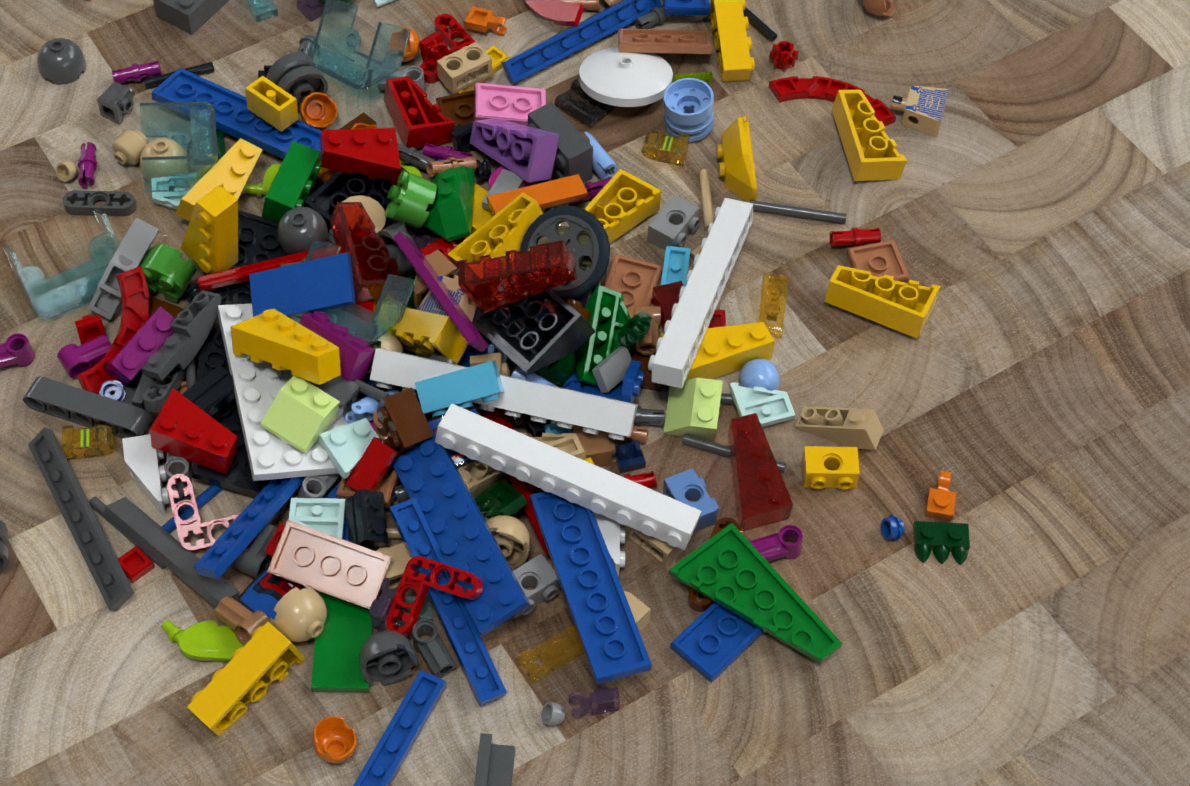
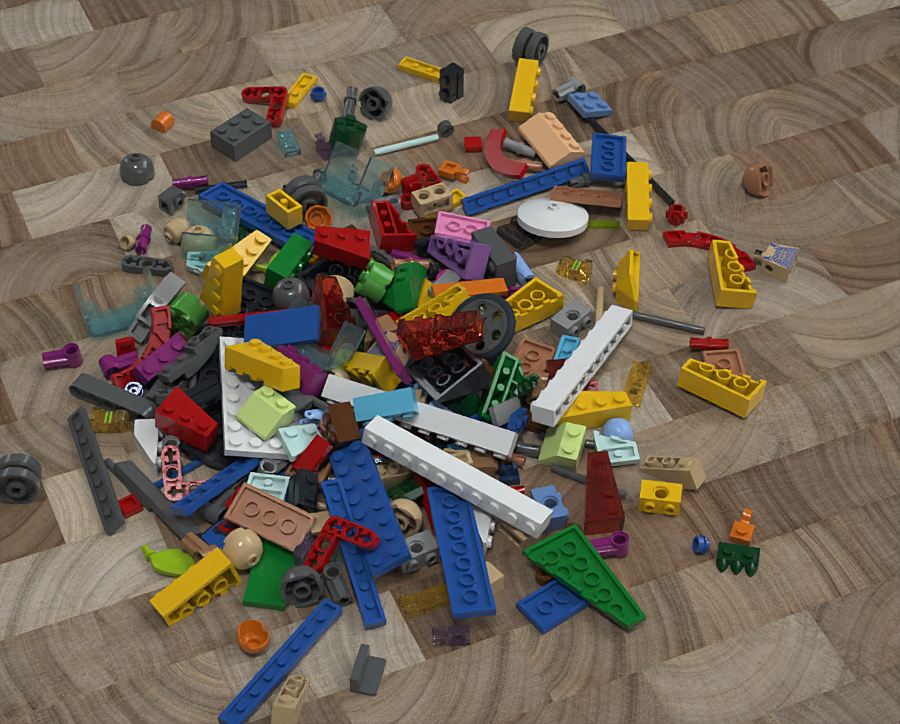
camera: 10 degrees right, 10 degrees down
(553, 713) = (419, 640): light grey hinge -> none
(689, 108) = (596, 242): light blue wheel -> none

